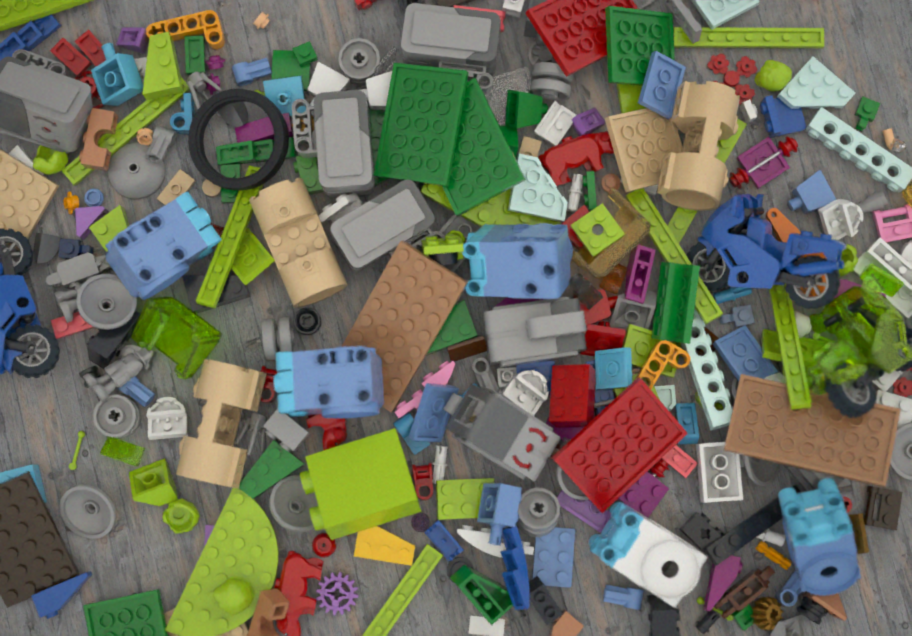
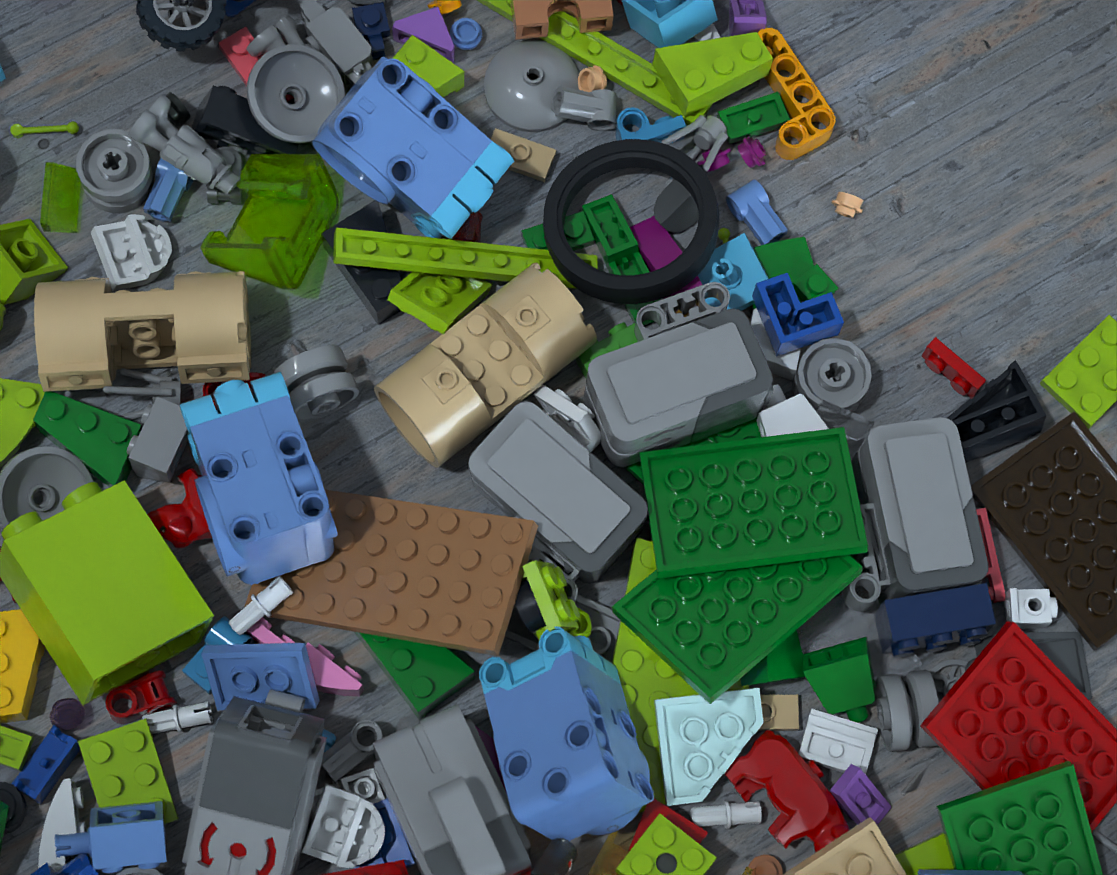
camera: 70 degrees right, 10 degrees down
(210, 189) = (535, 208): tan tile -> none
(307, 321) = (361, 425): black wheel -> none
(323, 73) = (792, 323): none -> blue brick
(395, 402) = (261, 605): none -> white axle
(467, 348) = (390, 702): reddish brown slope -> none
(511, 51) = (934, 620): none -> dark blue brick
(589, 182) = (752, 831): green plate -> none

